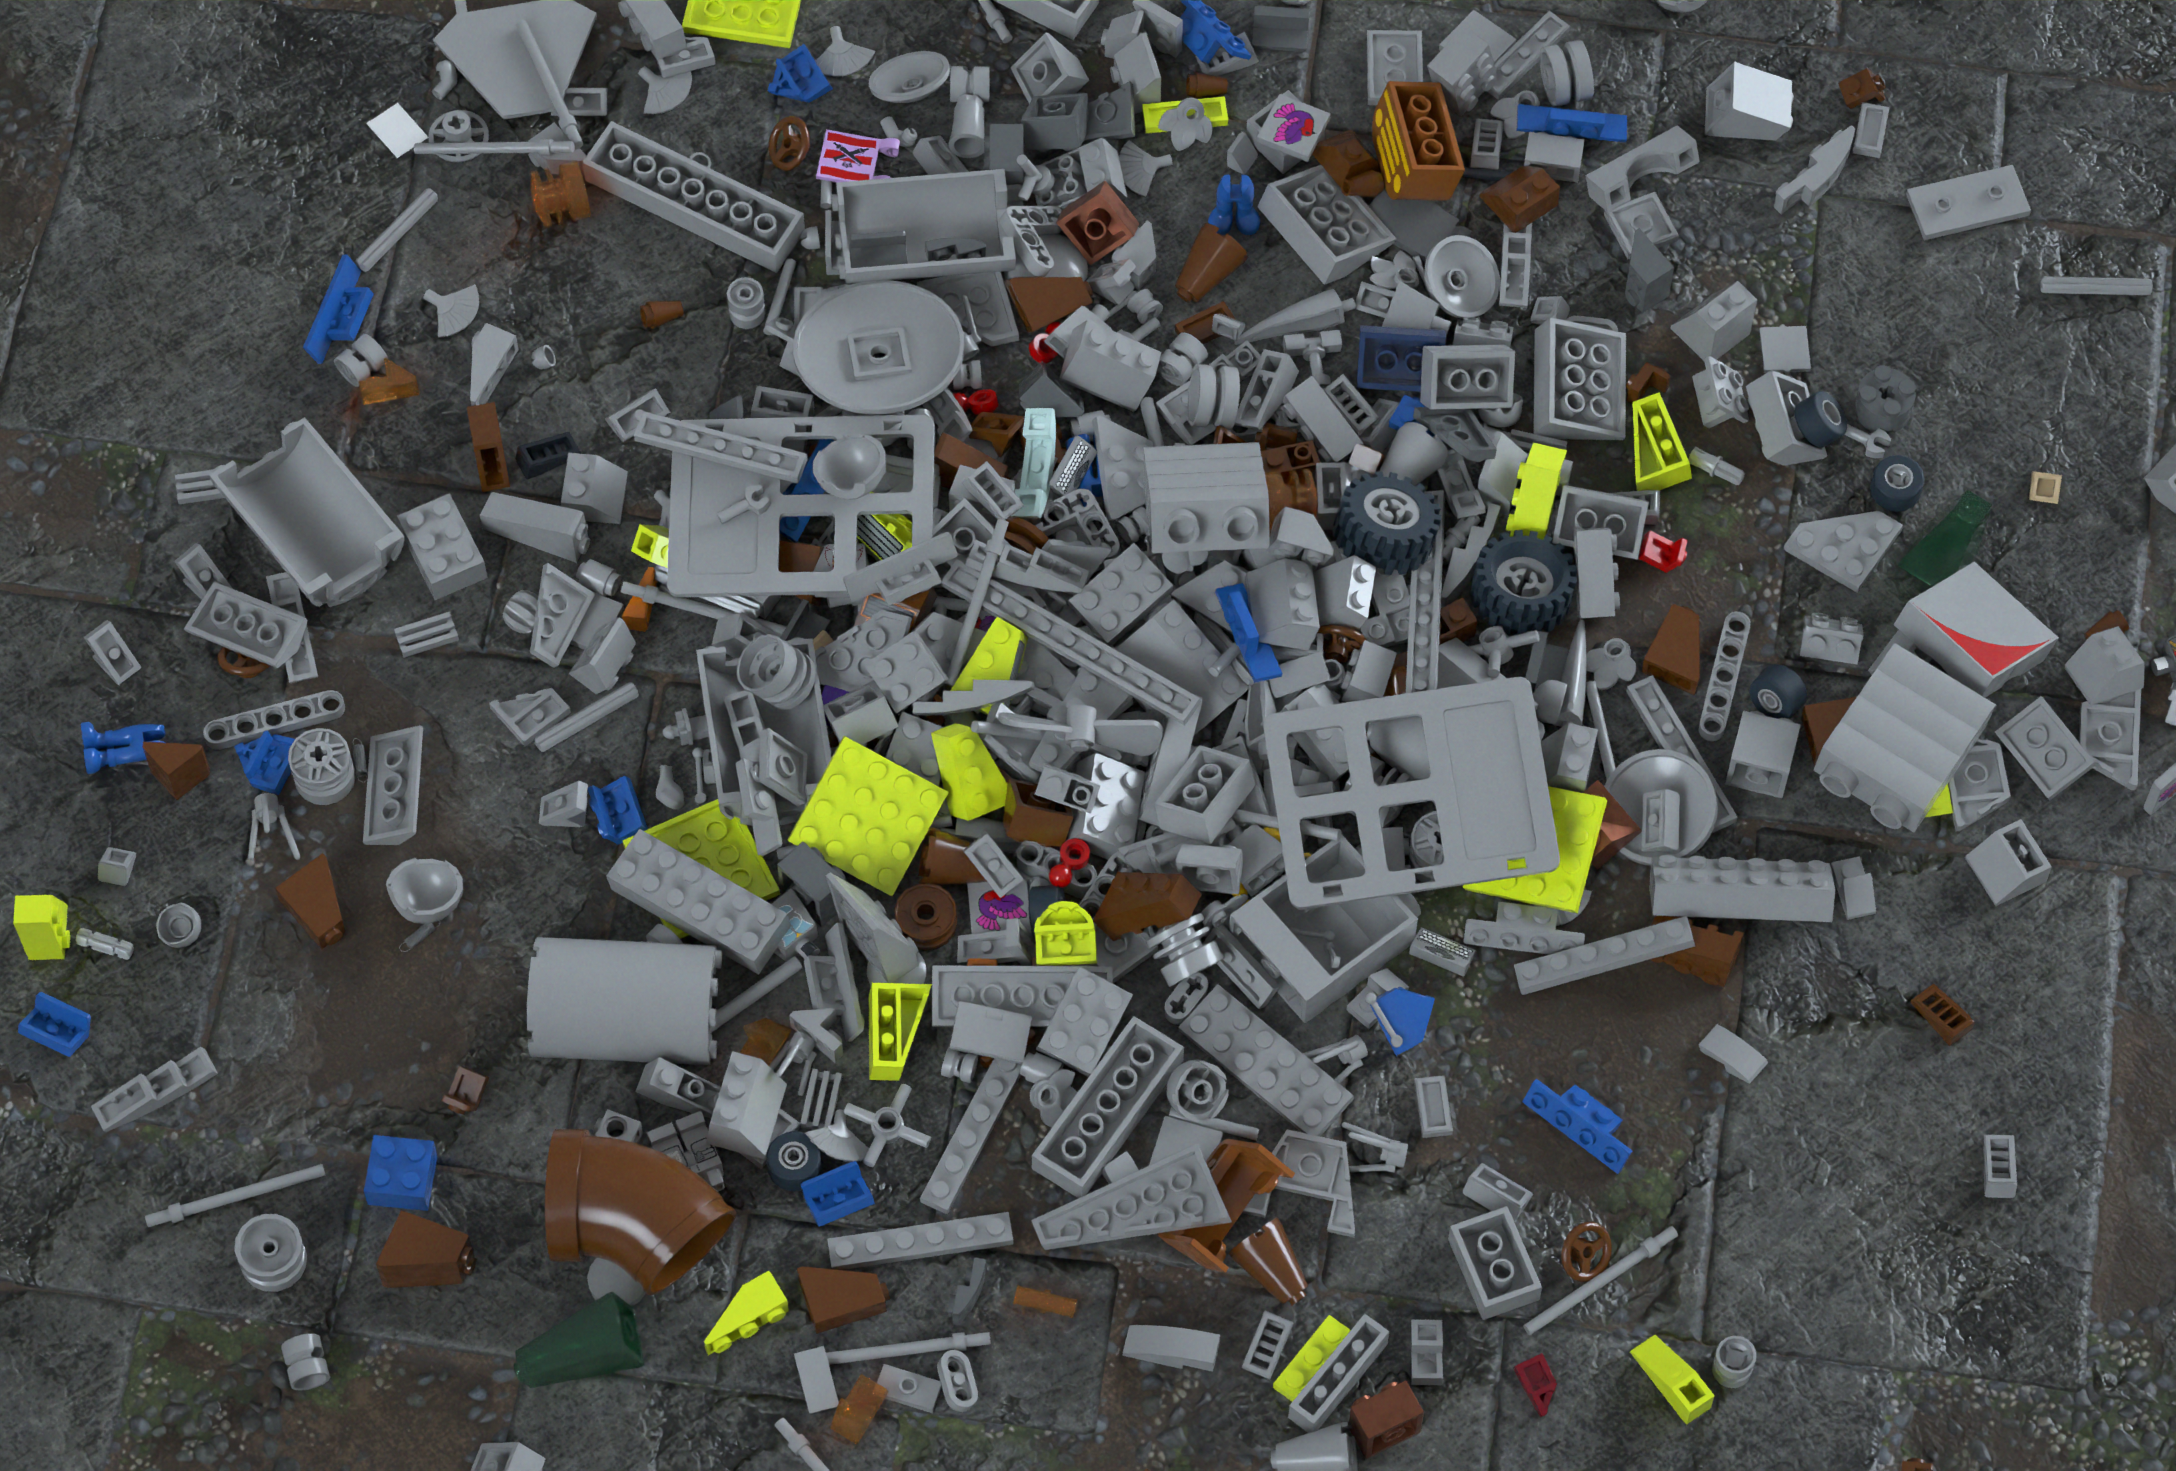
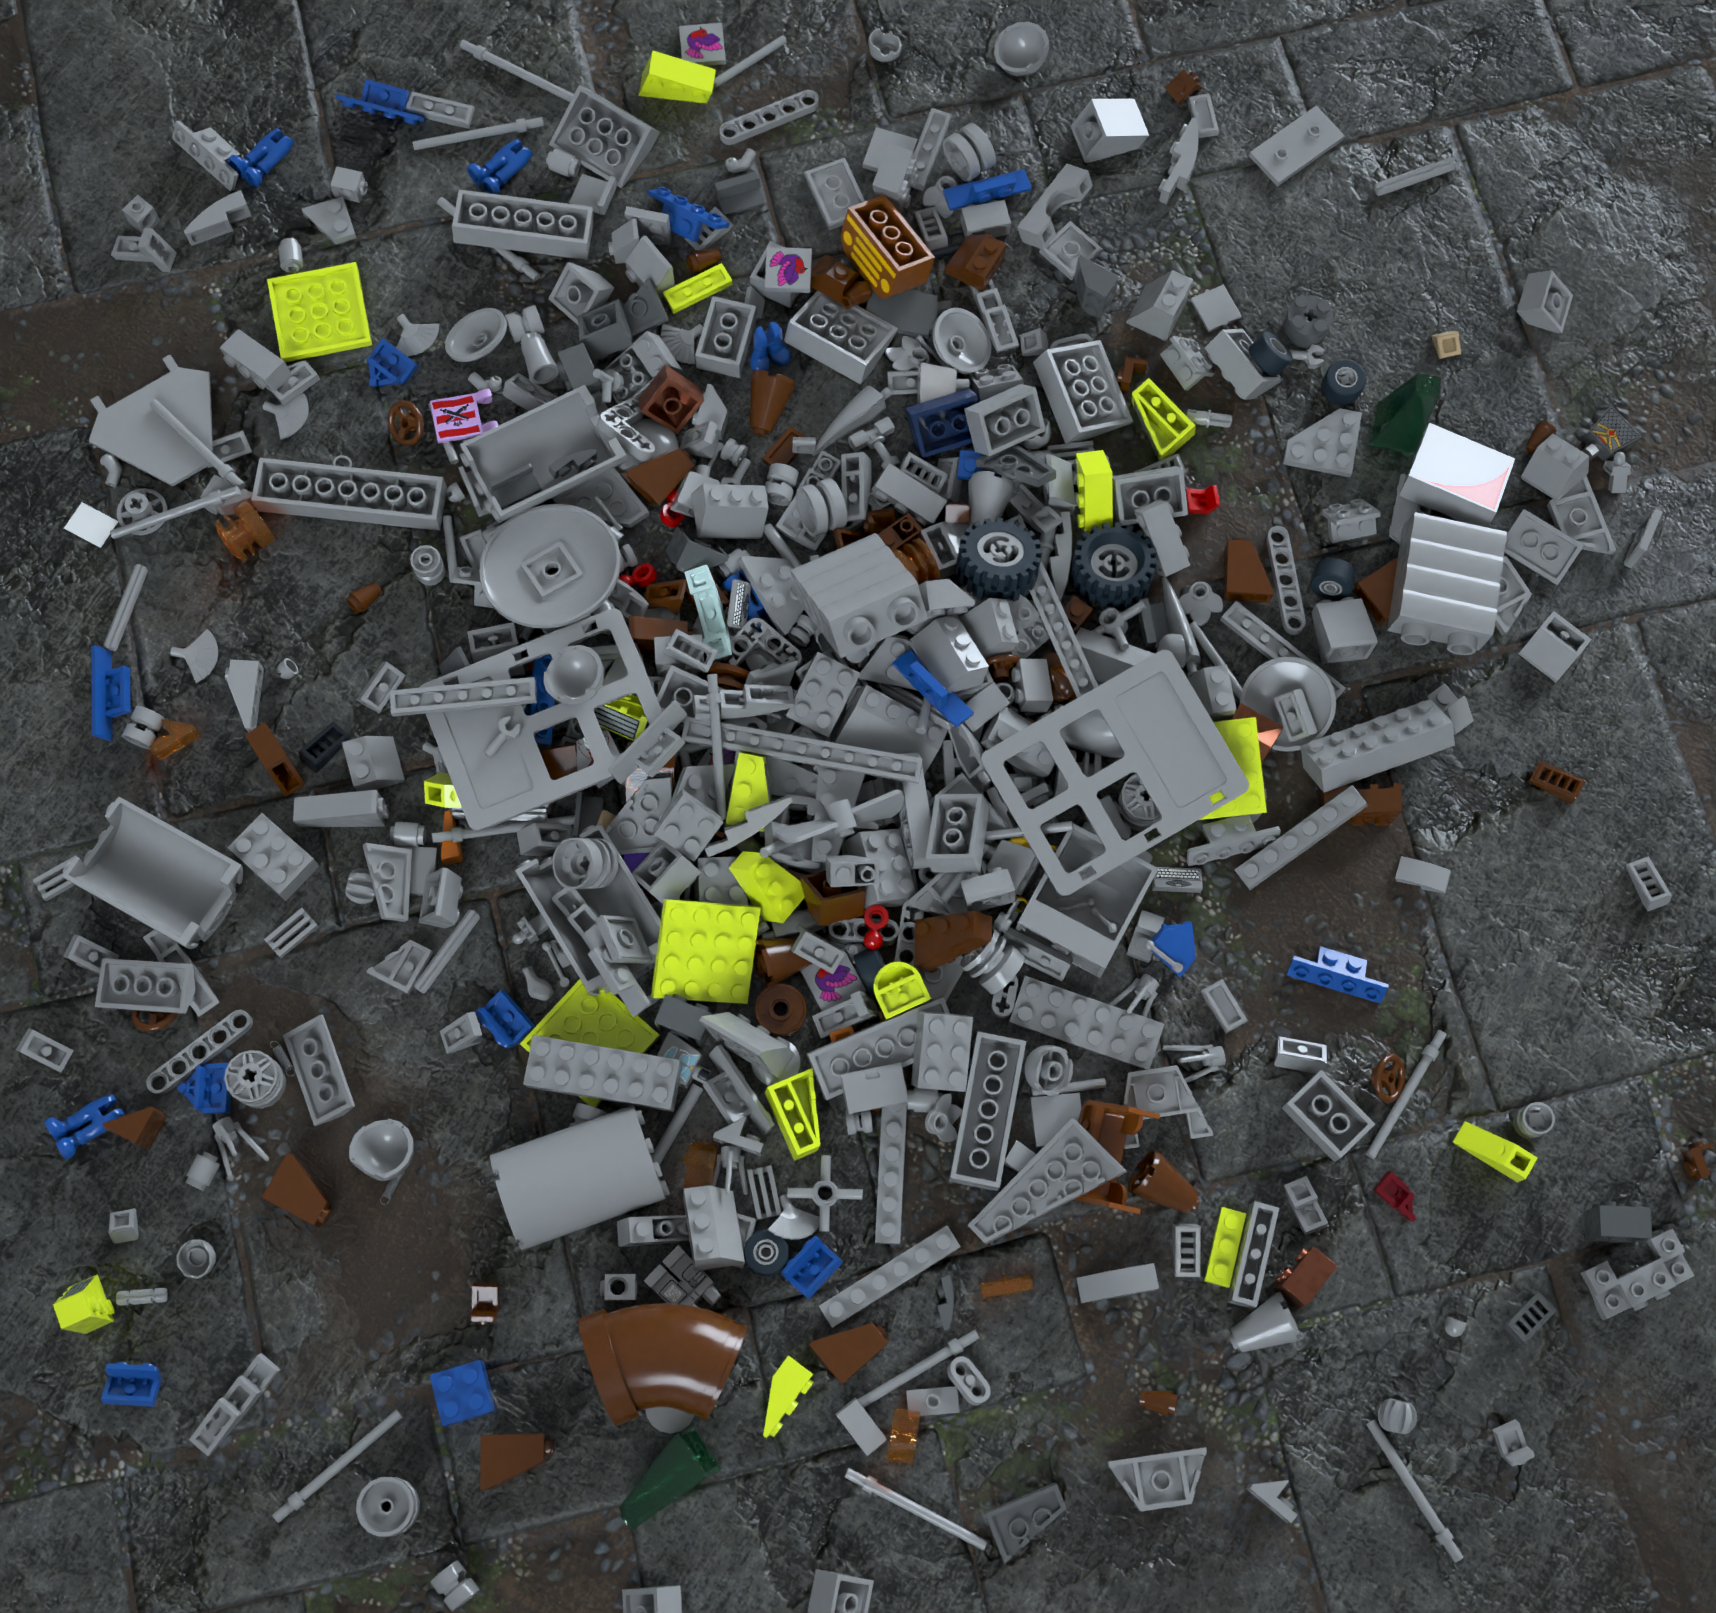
camera: 25 degrees left, 10 degrees up
(224, 840) = (202, 1171): none -> light grey brick
(1186, 128) = (701, 297): light grey plate -> none
(1190, 178) = (726, 337): none -> light grey brick

